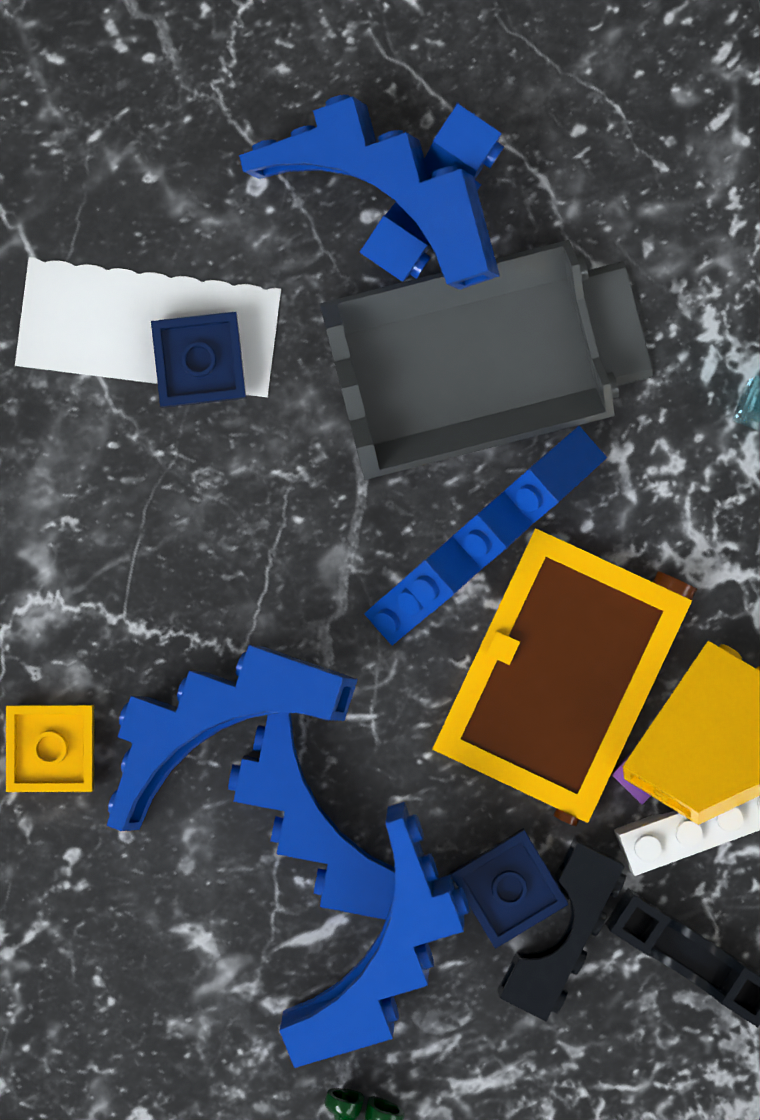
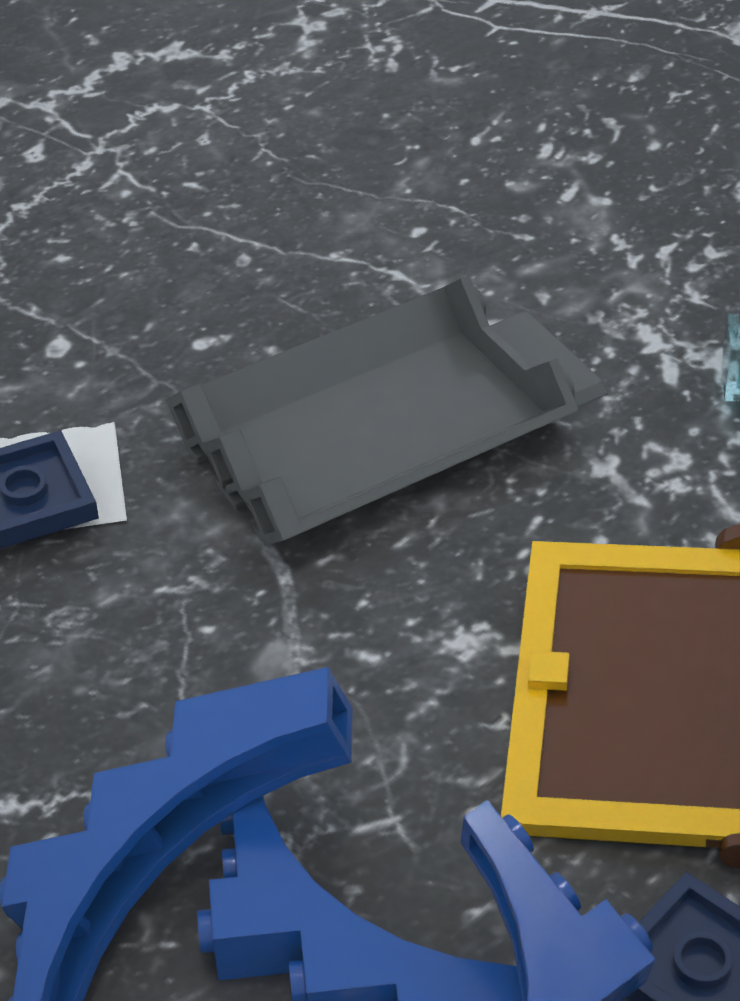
camera: 15 degrees left, 45 degrees down
(345, 144) = (150, 255): blue arch -> none
(462, 142) = (282, 262): blue brick -> none
(485, 535) = (434, 558): blue arch -> none

